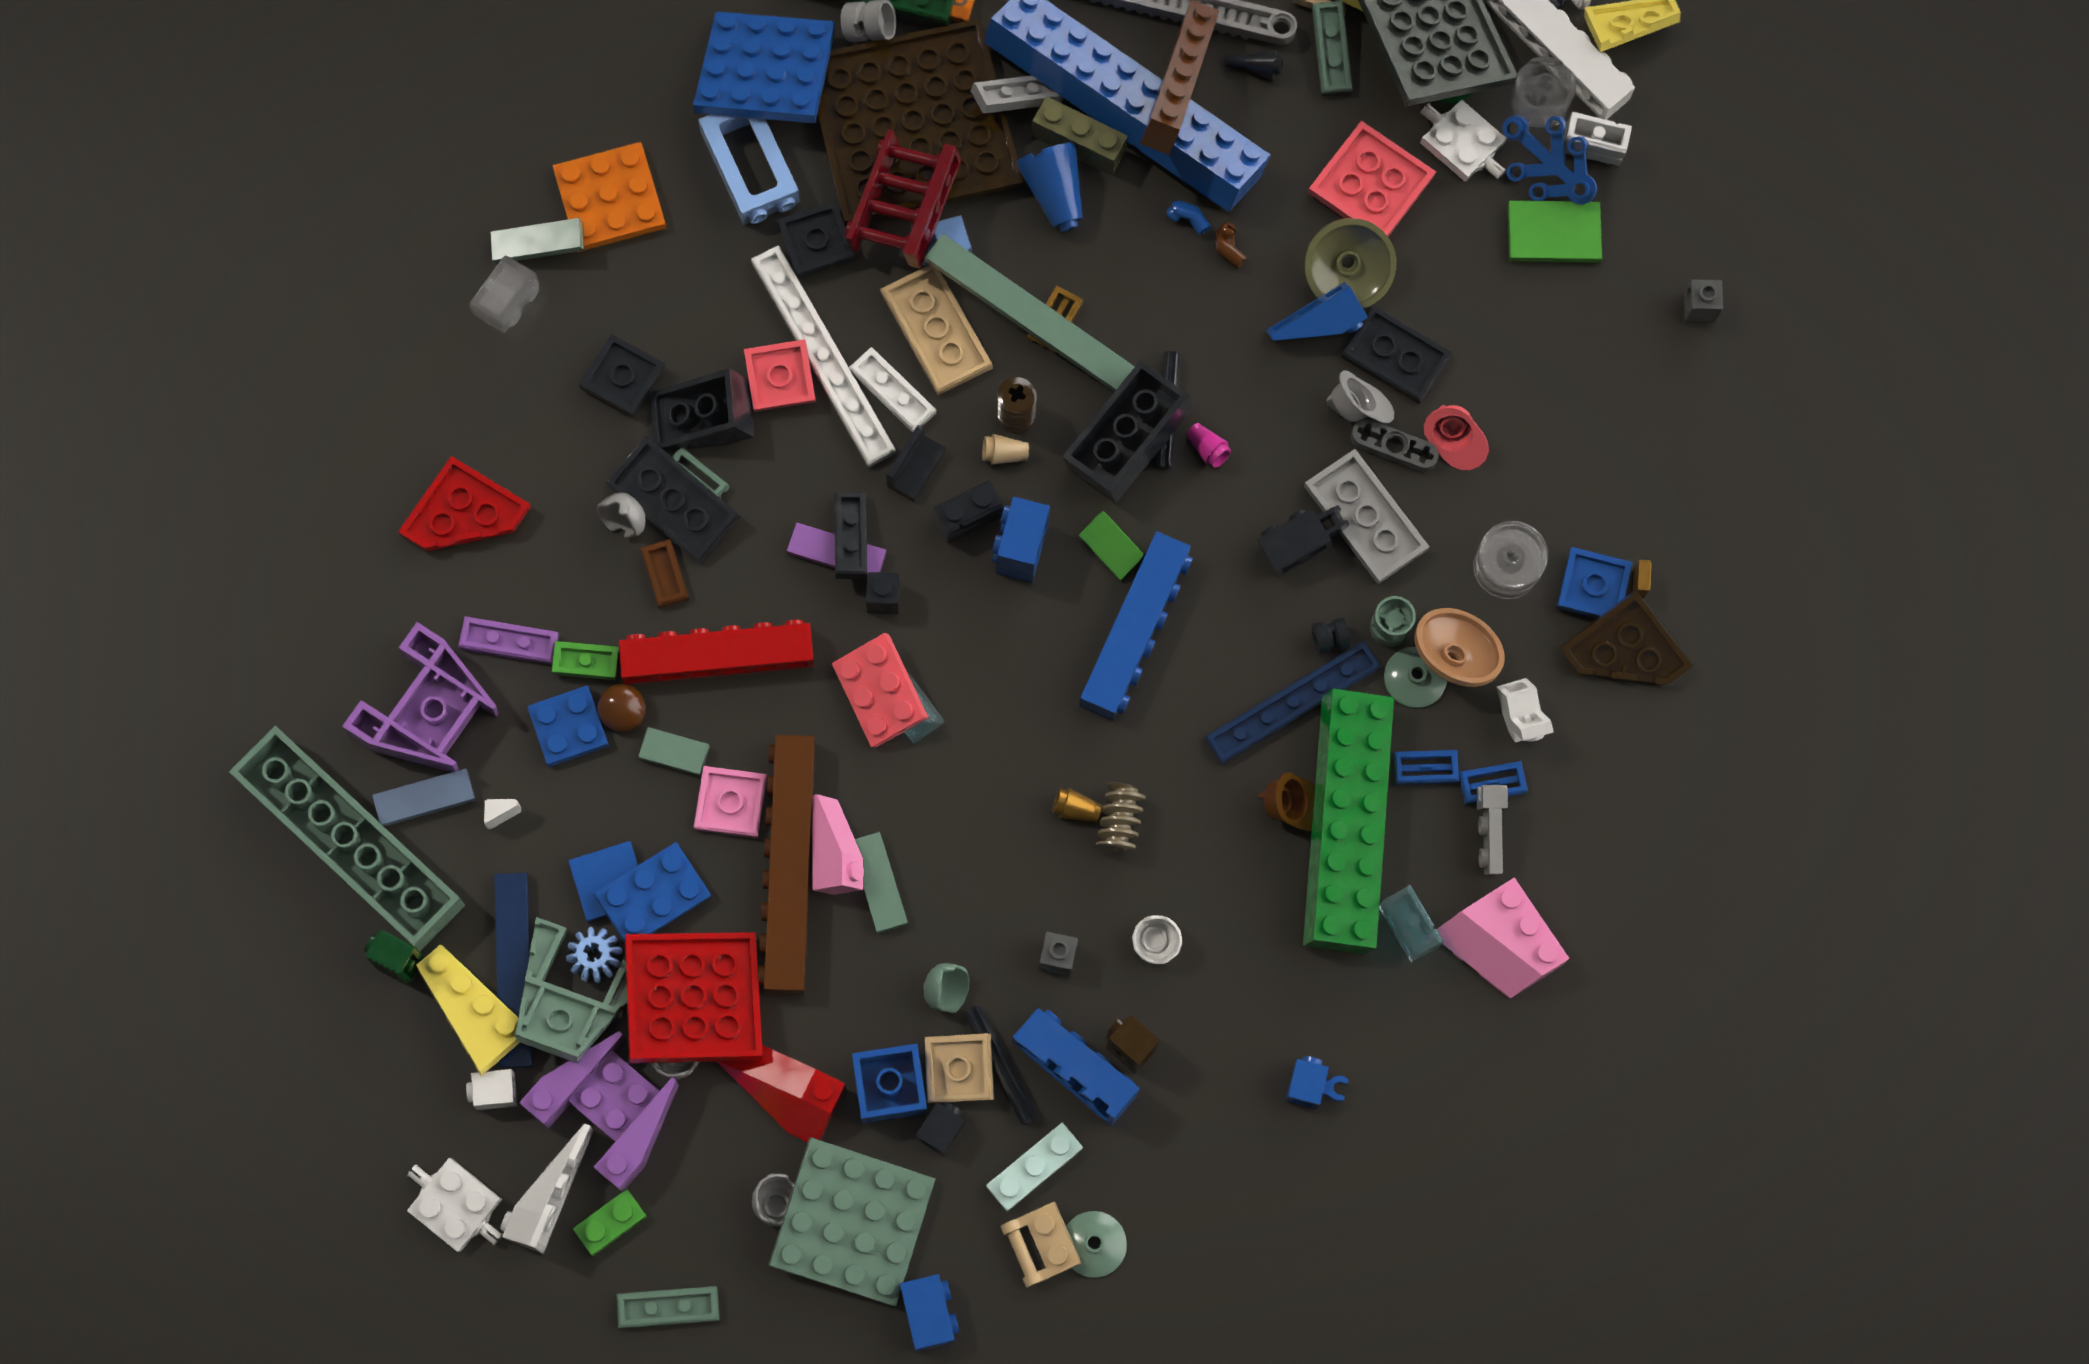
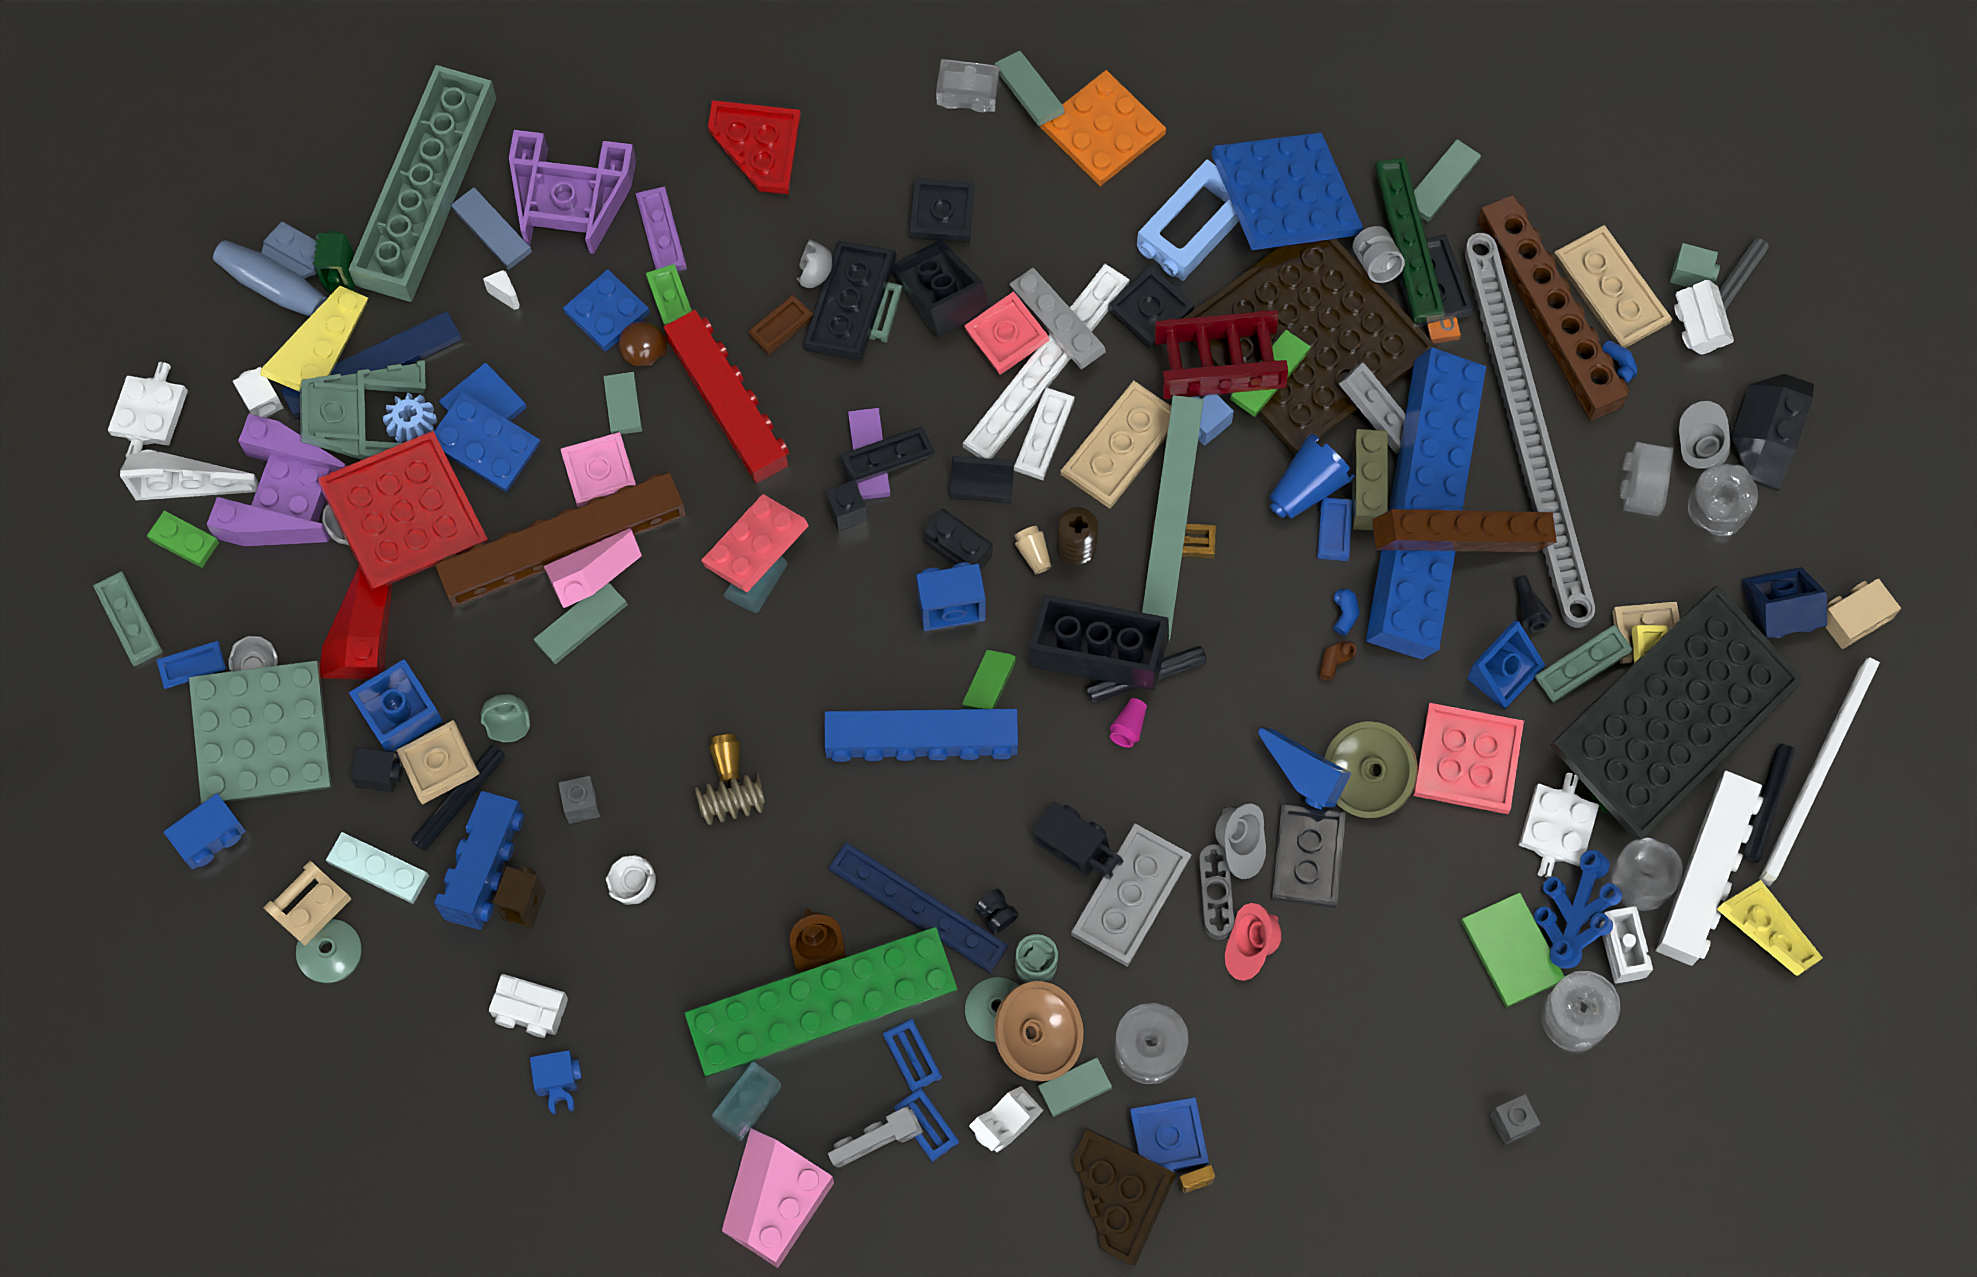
camera: 70 degrees right, 5 degrees down
(365, 1016) = (276, 271): none -> sand blue plate
(747, 1263) = (190, 663): none -> blue tile
(788, 324) = (1057, 318): none -> light grey plate
(926, 140) = (1287, 348): none -> bright green tile
(1108, 188) = (1335, 529): none -> blue tile
(1233, 1081) = (528, 1006): none -> white brick
(1303, 111) = (1507, 666): none -> blue slope
(1516, 639) = (1074, 1087): none -> sand green tile
(1637, 202) = (1569, 1025): none -> clear wheel

